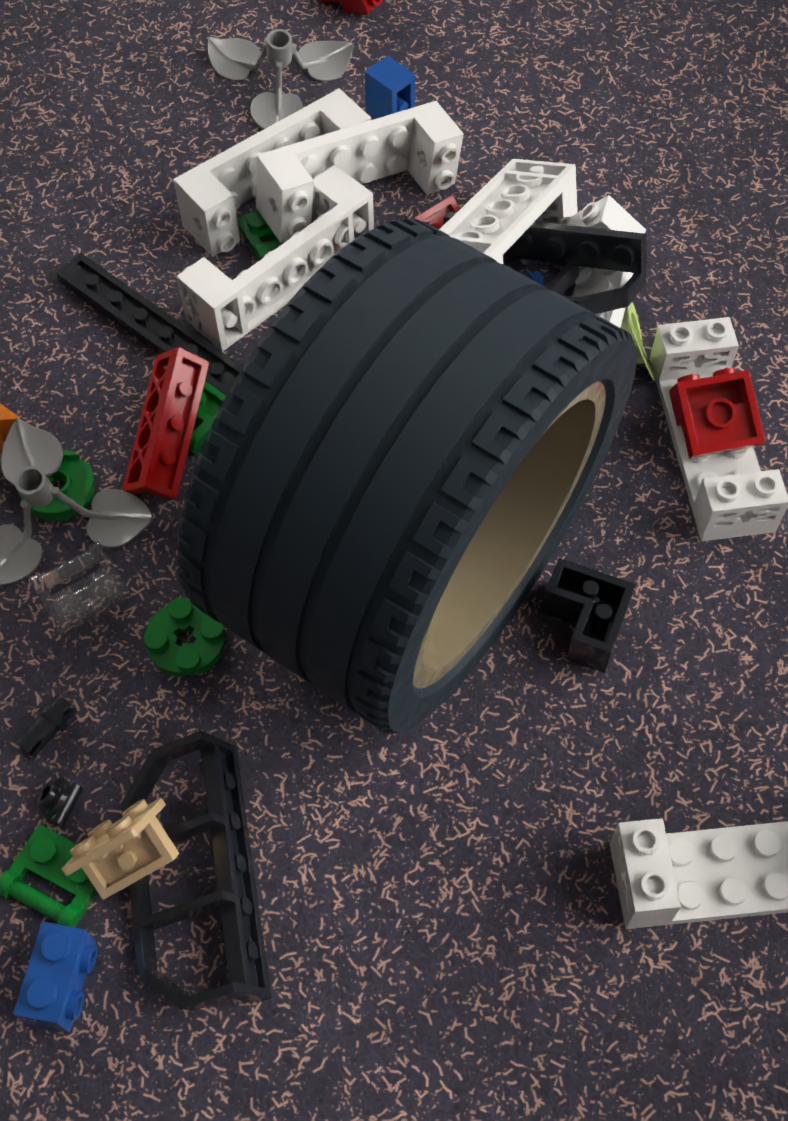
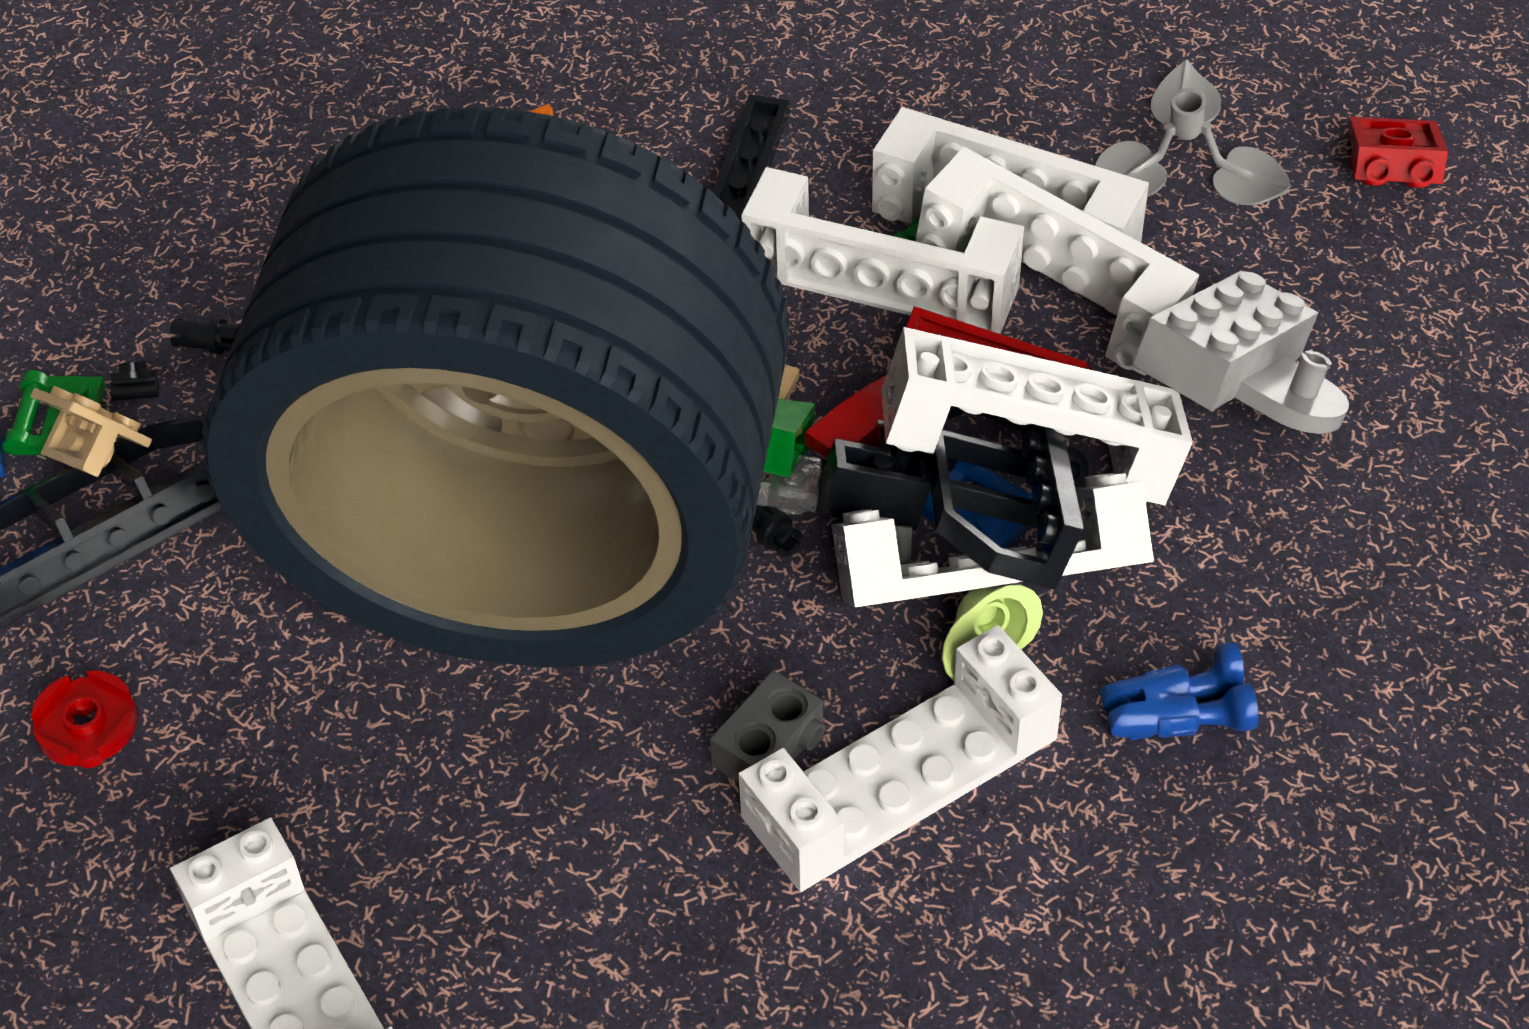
camera: 65 degrees right, 10 degrees down
(384, 945) = (91, 742): none -> red plate
(388, 88) = (1208, 239): blue brick -> none
(495, 121) = (1244, 345): none -> light grey brick
(592, 603) = (553, 730): black brick -> none
(647, 497) = (759, 727): none -> dark grey brick
(717, 412) = (911, 741): red plate -> none
(729, 282) = (1166, 701): none -> blue piece

